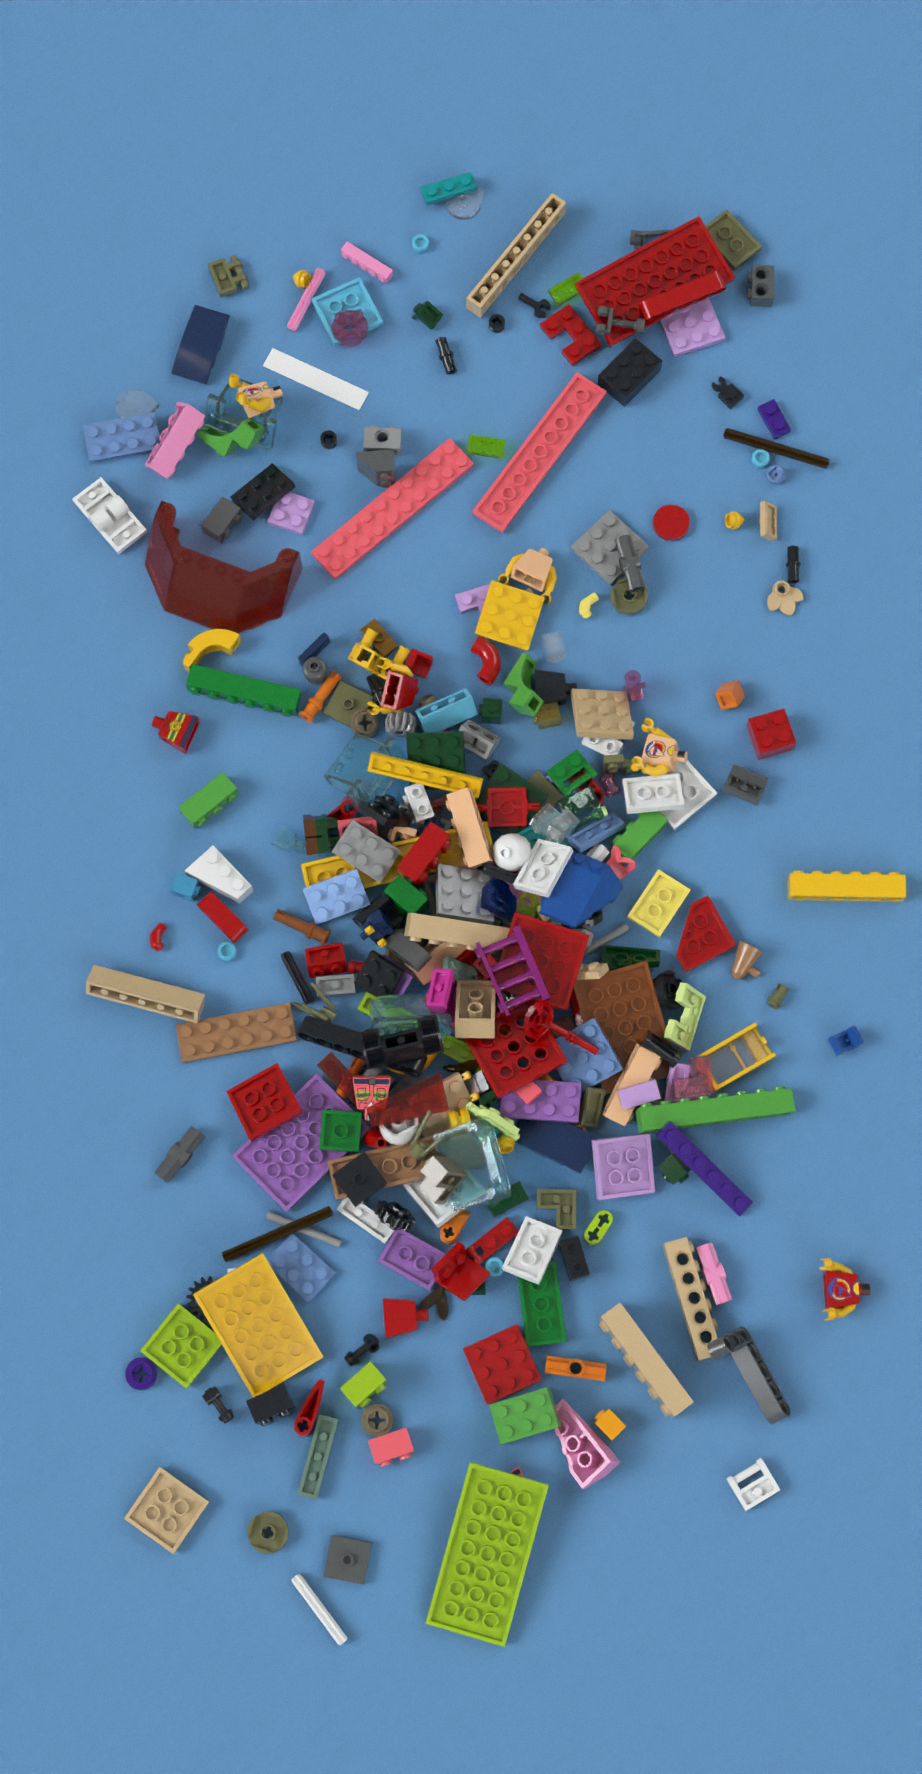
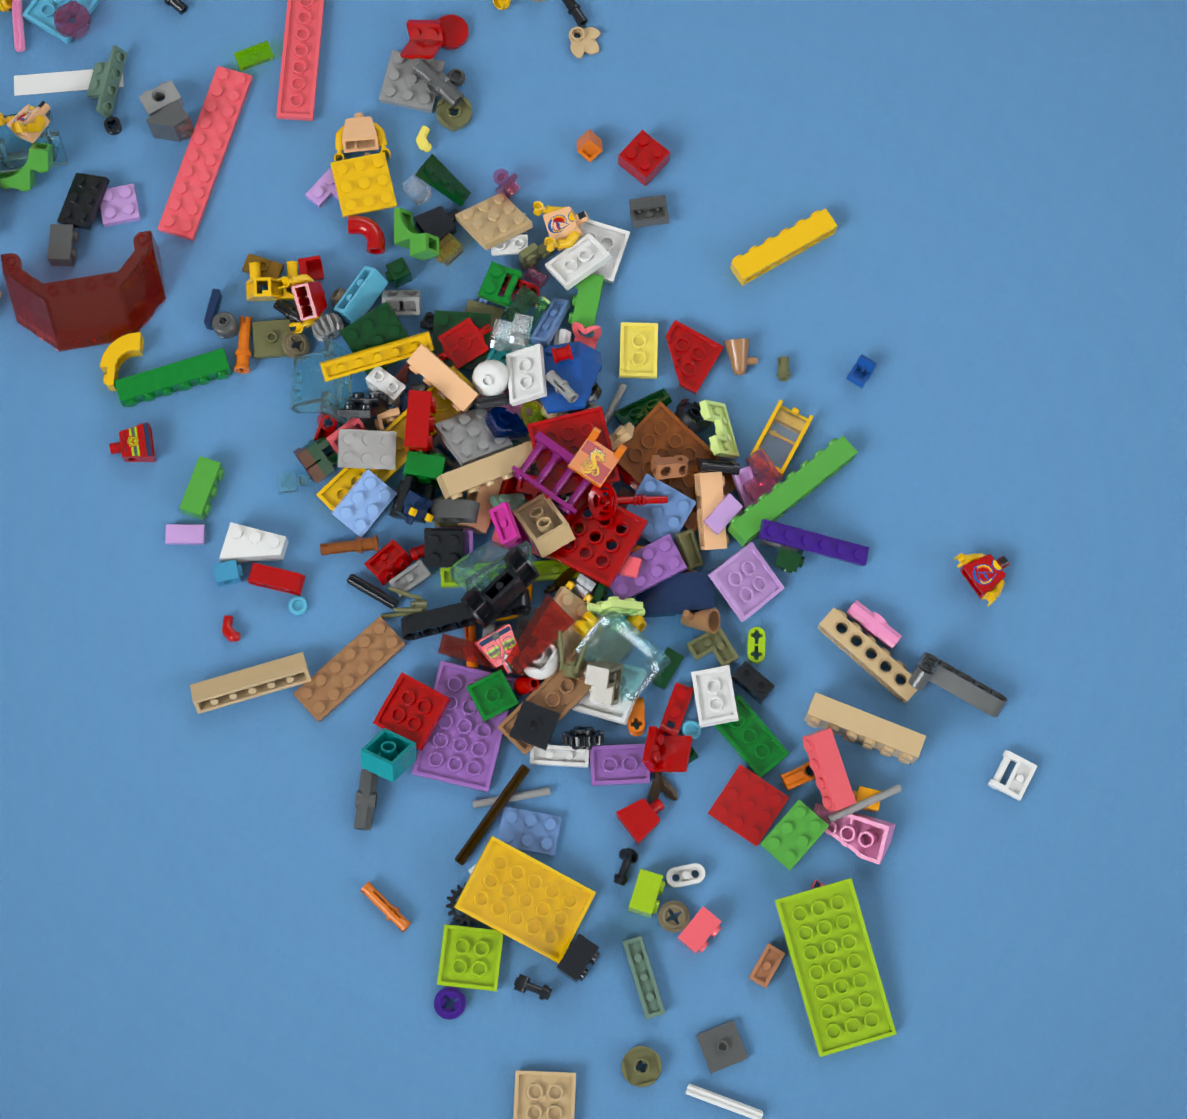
camera: 35 degrees left, 0 degrees up
(141, 1266) = (385, 906): none -> orange pin
(170, 832) = (185, 534): none -> lavender tile
(220, 1128) = (388, 755): none -> teal brick
(309, 1409) = (612, 942): red piece -> none
(347, 398) = (106, 81): none -> sand green bracket
(409, 1391) = (685, 876): none -> white plate
(429, 1514) = (766, 965): none -> nougat plate
(552, 980) = (594, 460): none -> flag
(564, 1177) = (704, 620): none -> medium nougat piece
(566, 897) = (561, 386): none -> light grey pin
(581, 652) = (442, 180): none -> dark green wing
(585, 868) = (562, 353): none -> red bush
(588, 1378) = (828, 770): none -> coral brick
(603, 1426) = (864, 803): none -> light grey bar
(617, 1024) = (669, 466): none -> nougat leg
(643, 516) = (425, 39): none -> red bracket
(650, 566) = (456, 77): none -> dark grey plate

